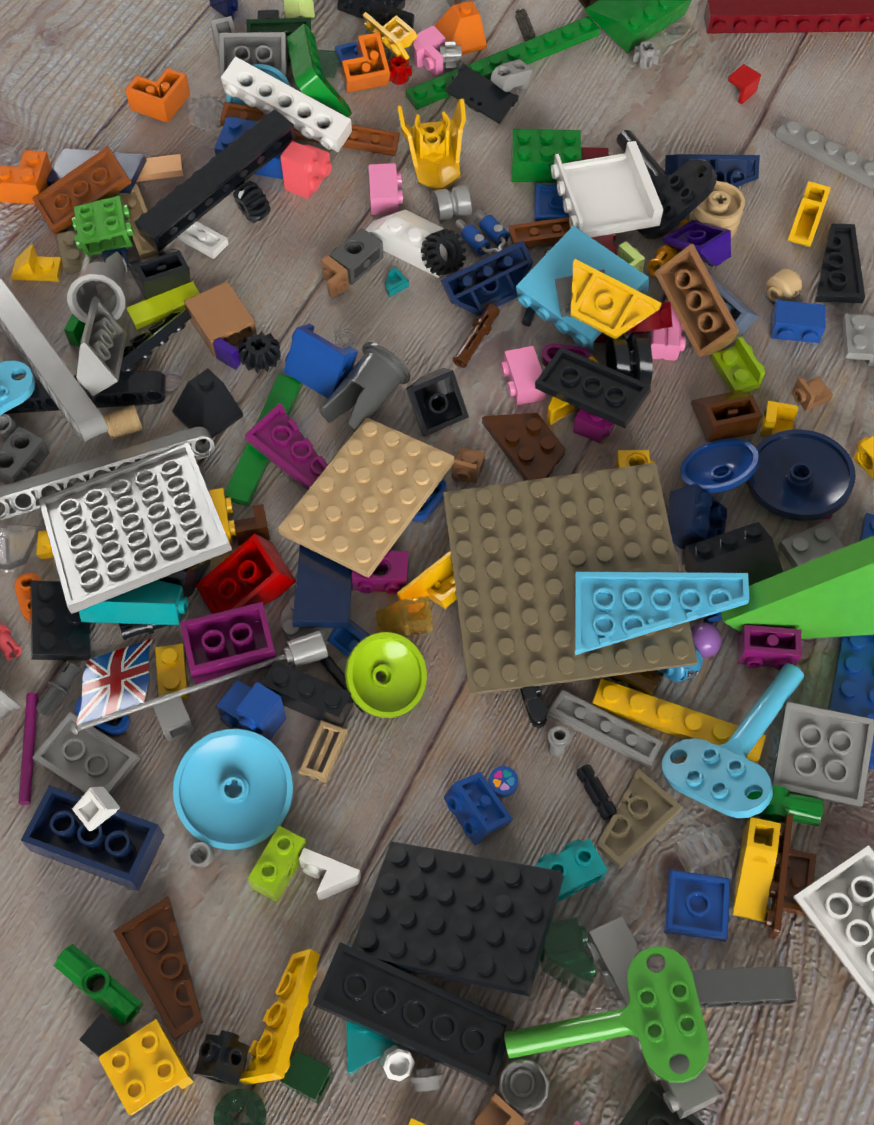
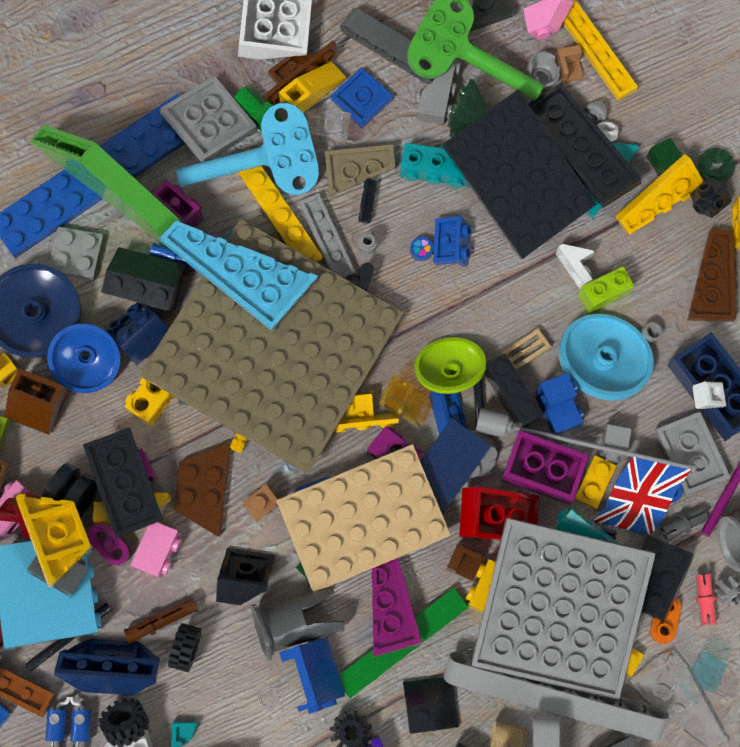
camera: 145 degrees left, 15 degrees up
(439, 322) = (184, 647): none -> black tyre

